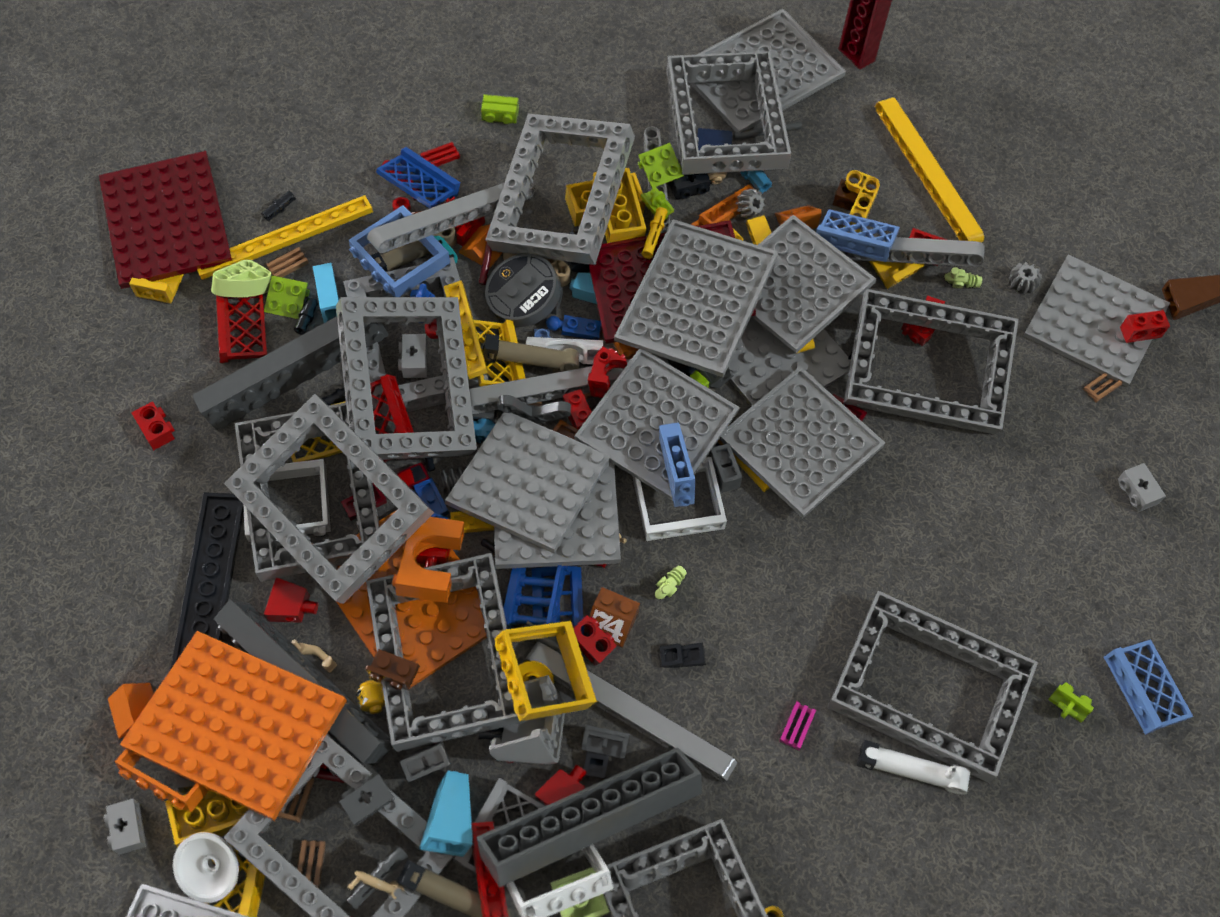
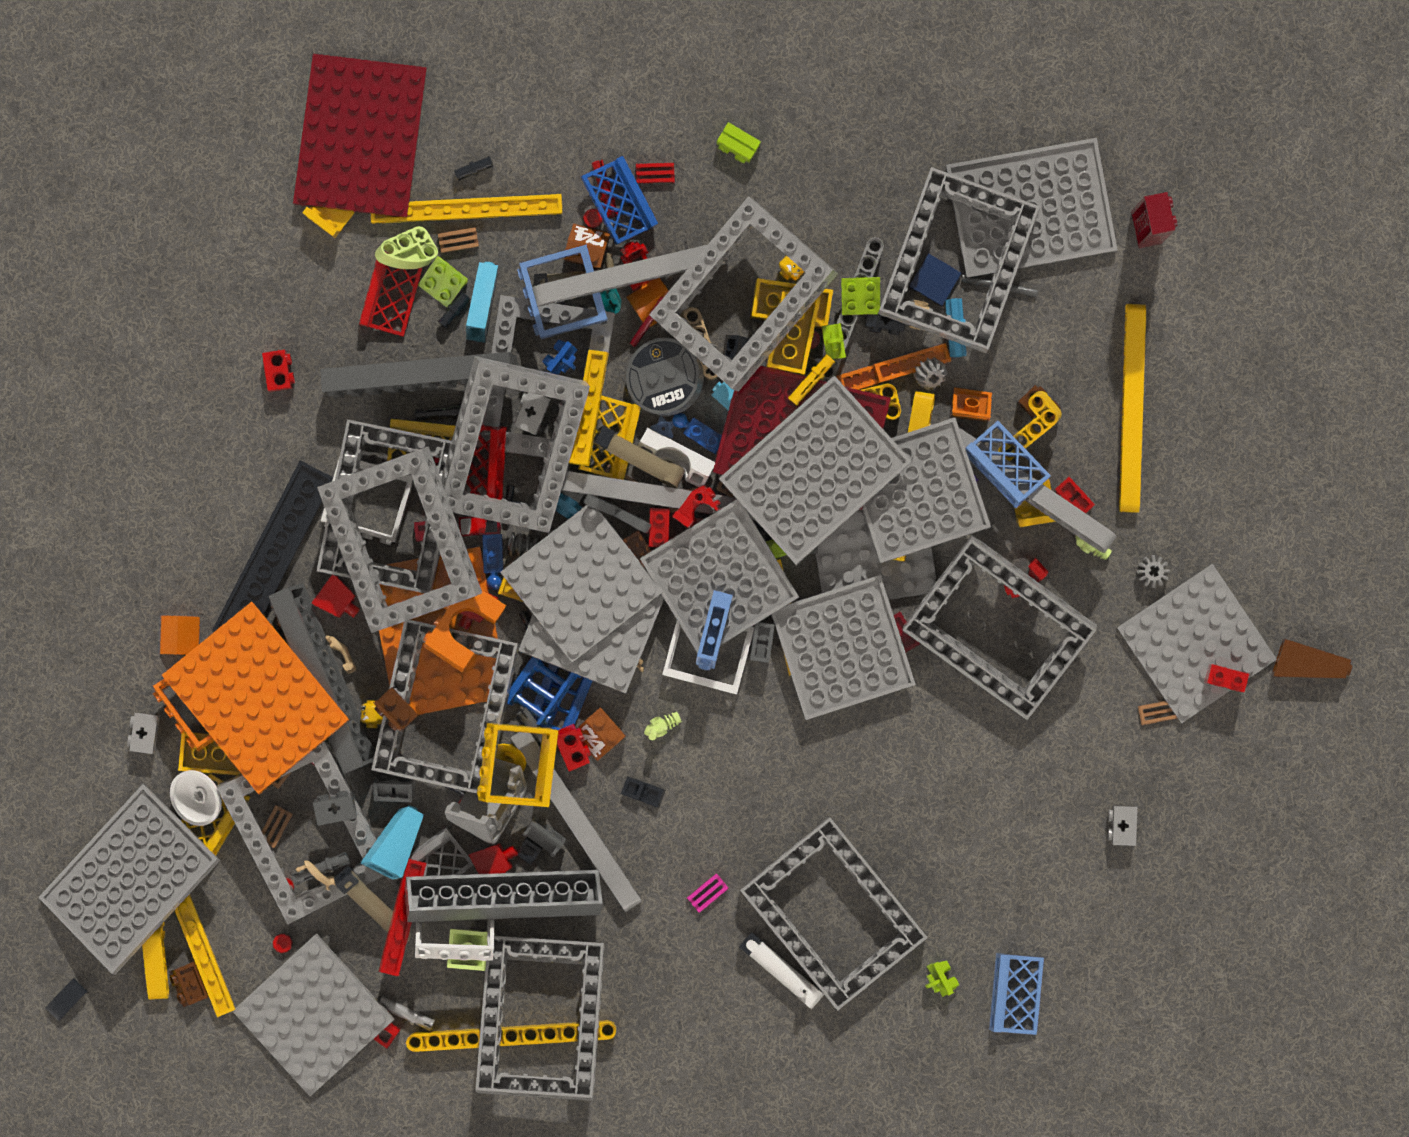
camera: 25 degrees right, 25 degrees up
(587, 171) = (789, 269): none -> yellow head

